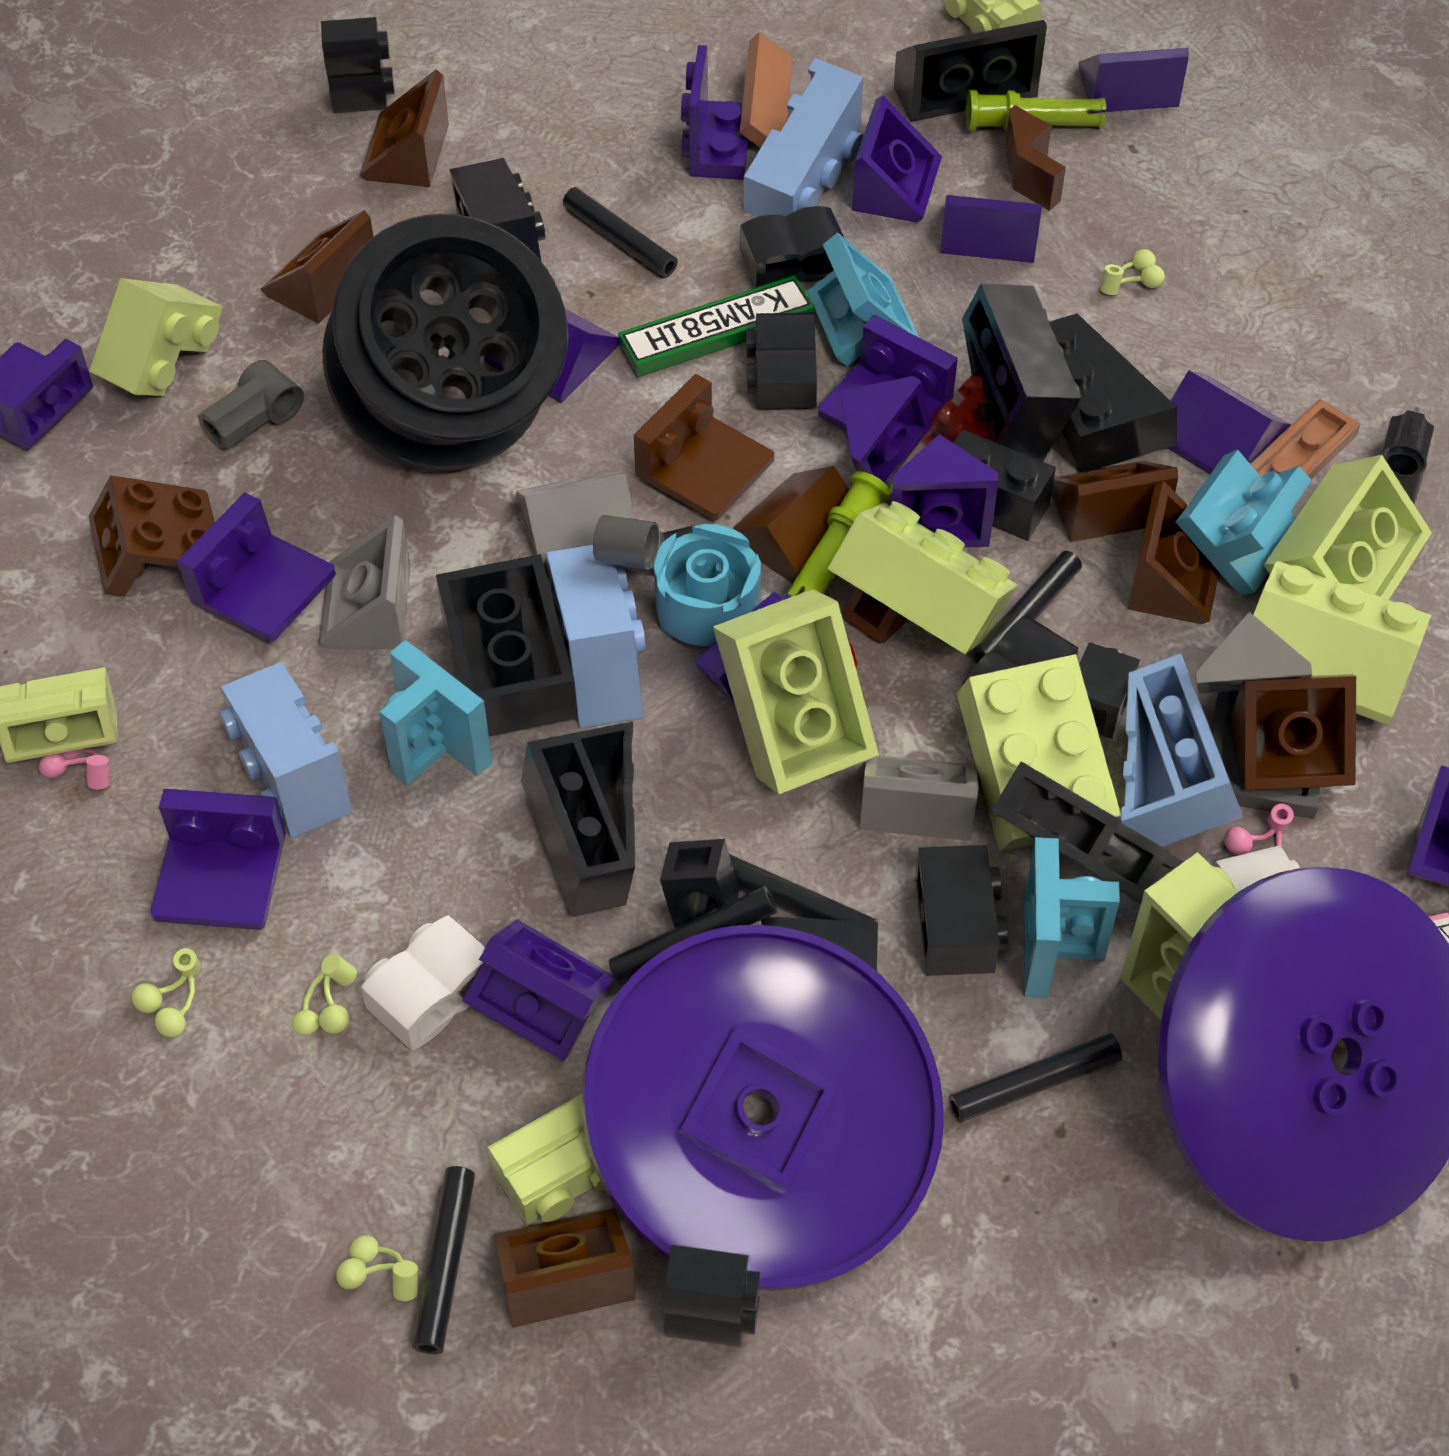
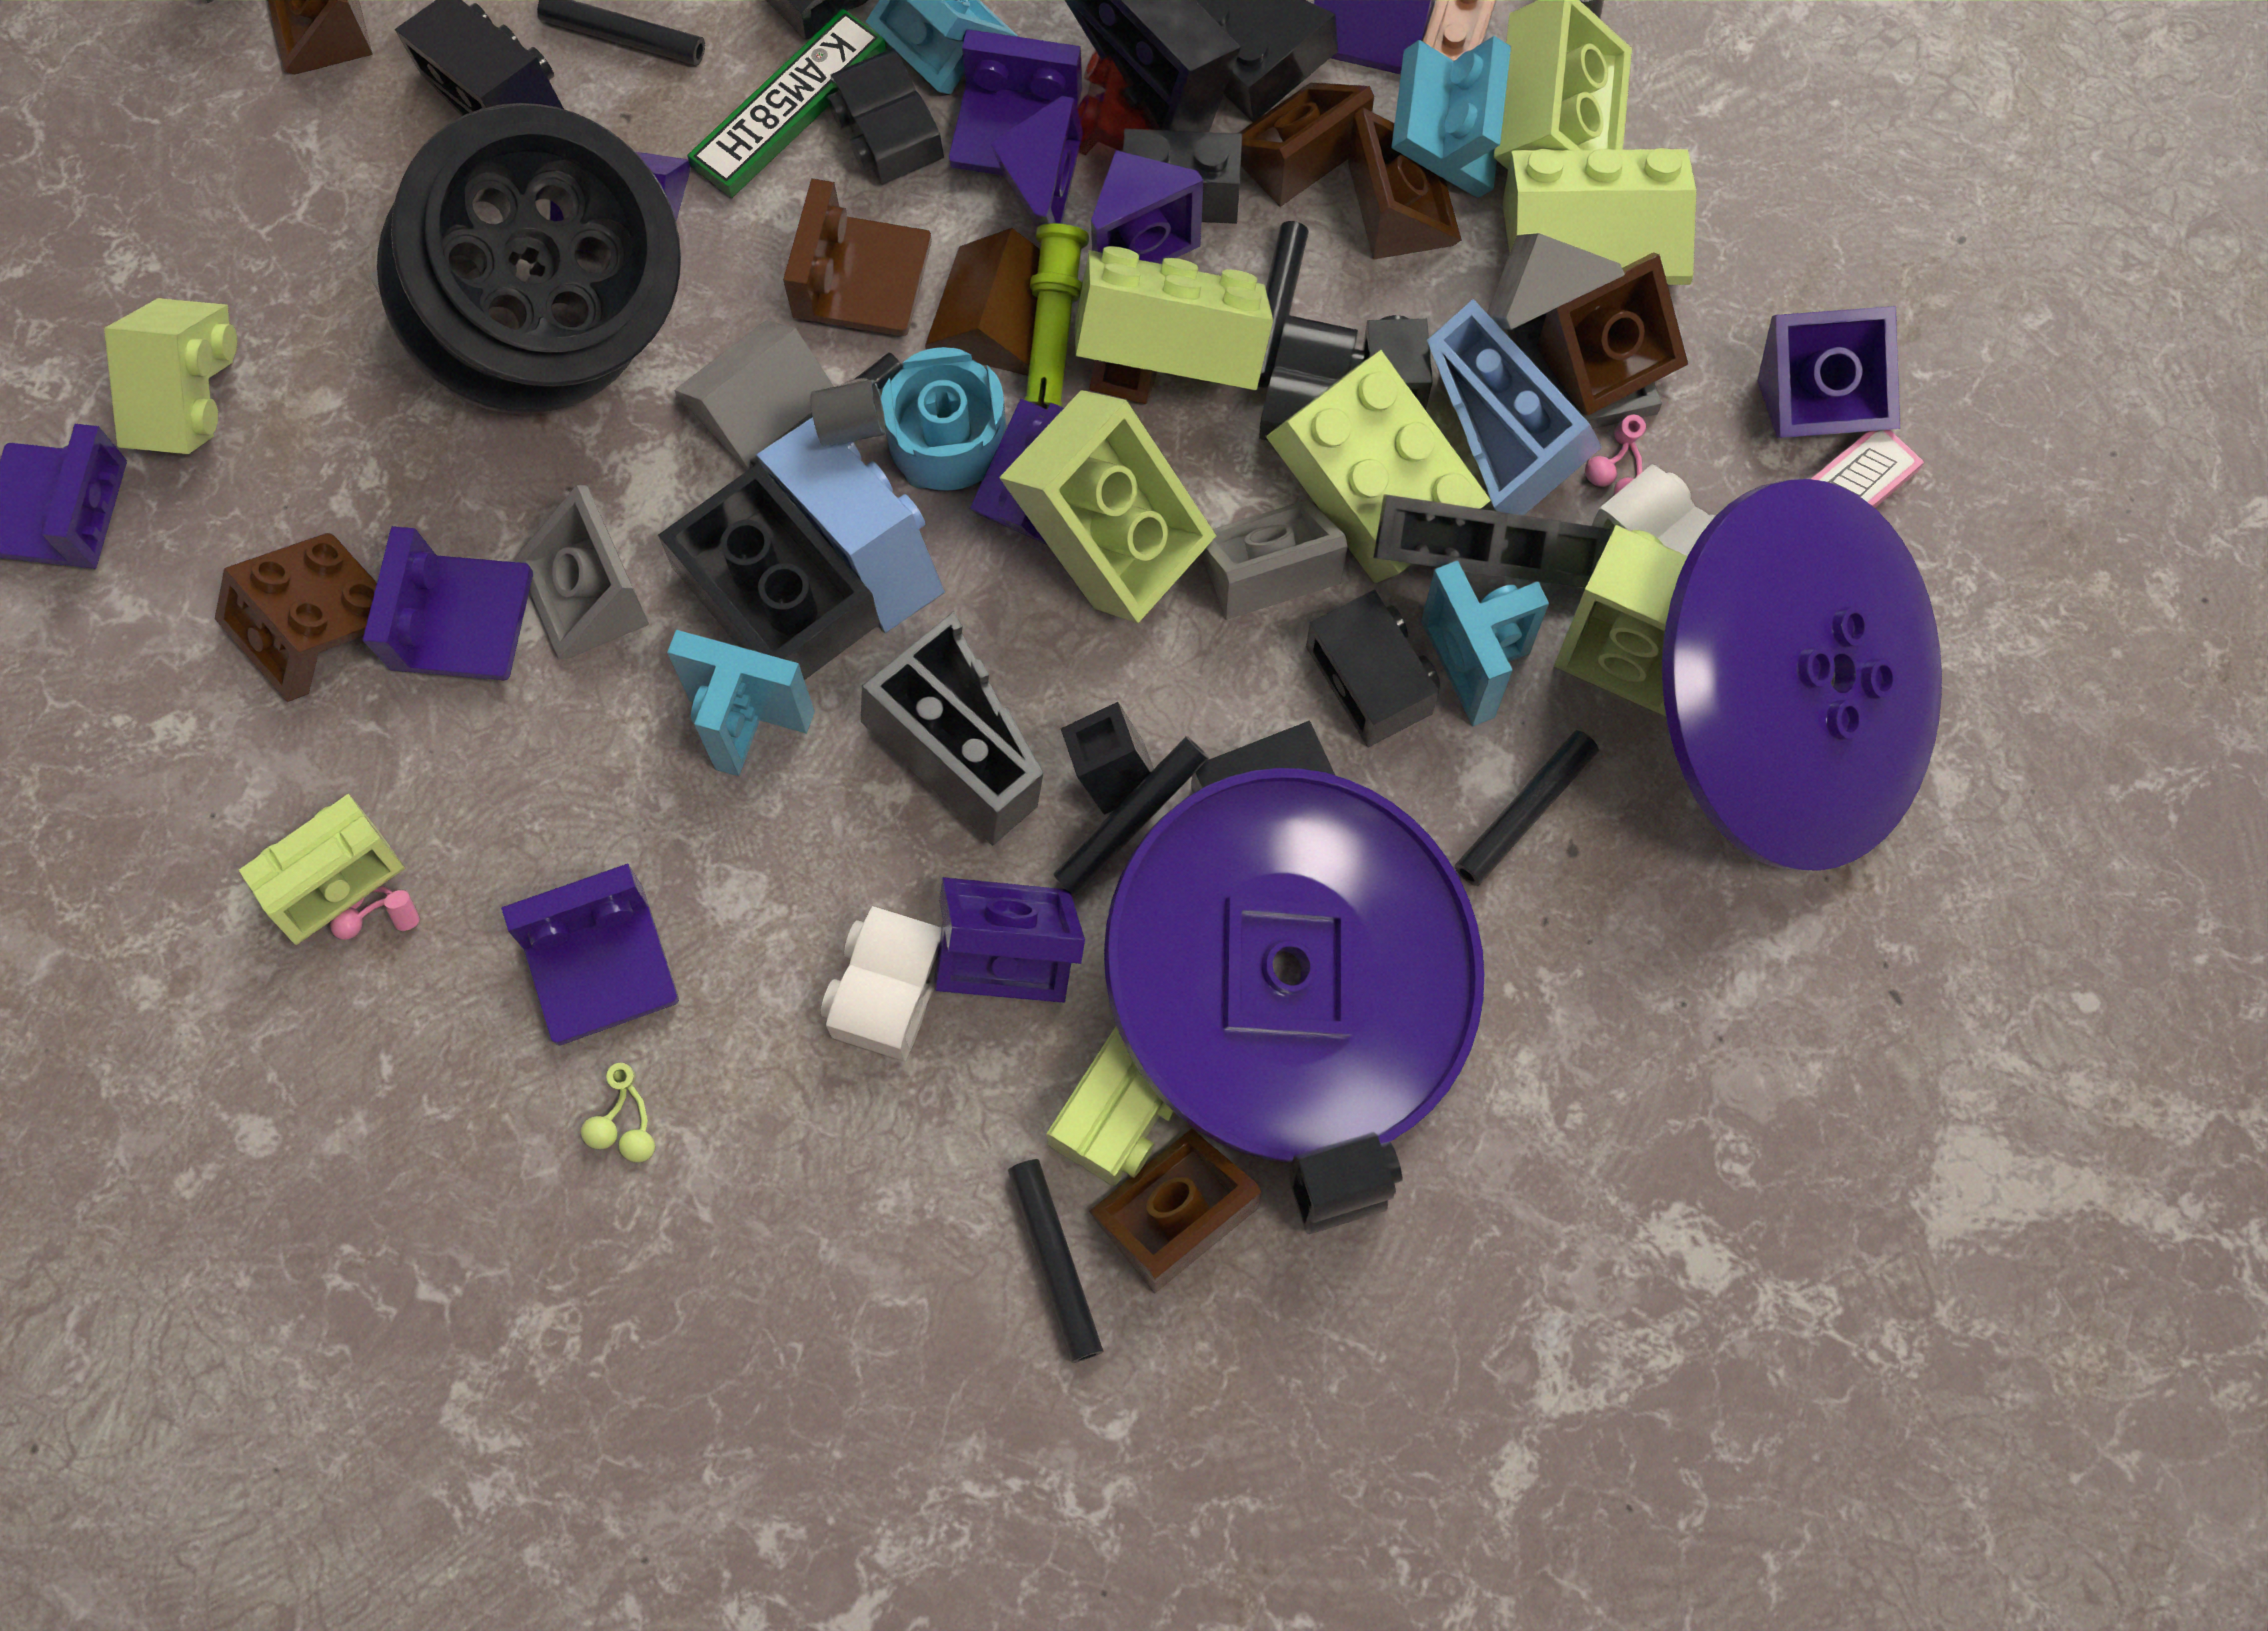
camera: 25 degrees left, 15 degrees up
(261, 396) = (330, 398): dark grey piece -> none
(285, 749) = (593, 796): light blue wedge -> none
(313, 275) = (313, 207): reddish brown slope -> none
(334, 1017) = (804, 1065): yellowish green piece -> none
(354, 1271) = (972, 1315): yellowish green piece -> none
(792, 895) = (1208, 724): black piece -> none

